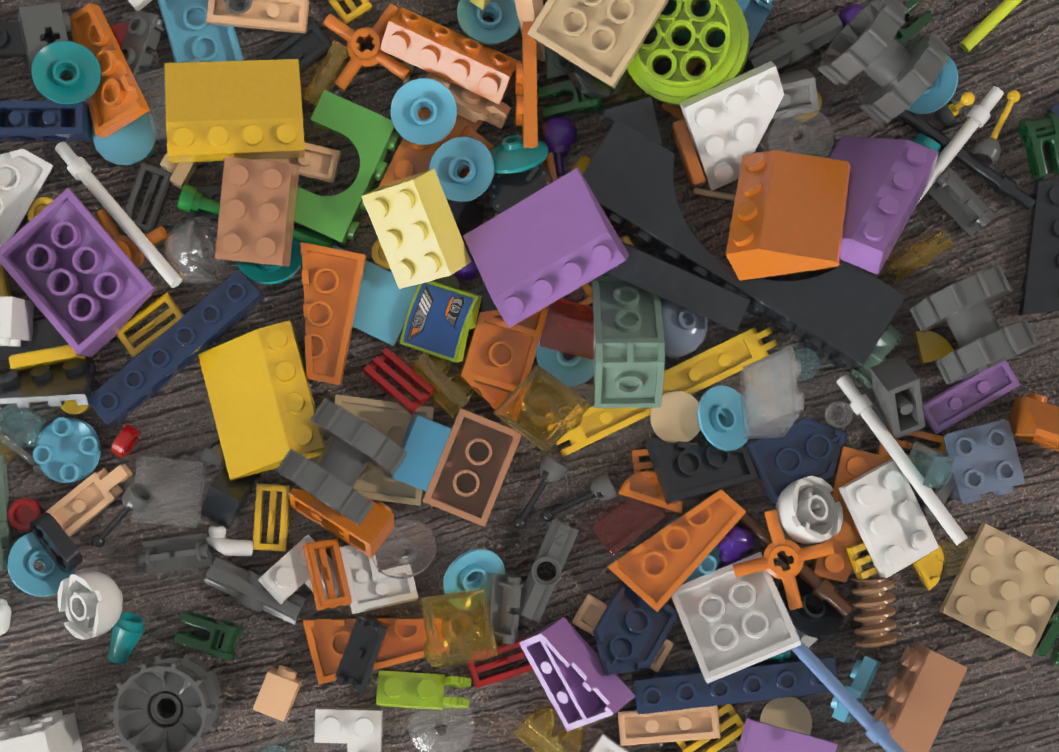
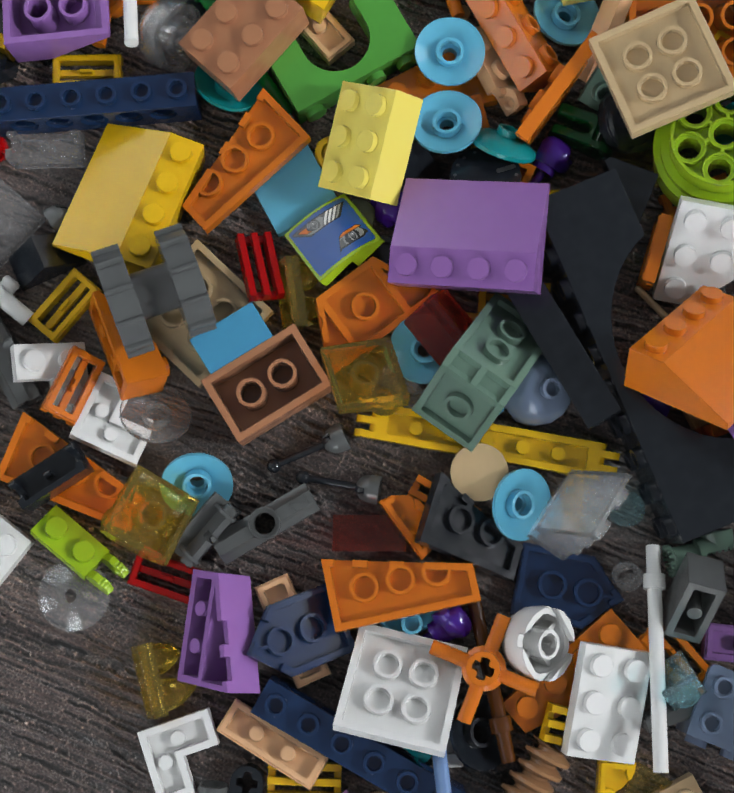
camera: 45 degrees right, 5 degrees down
(166, 408) = (46, 150): none -> clear hinge

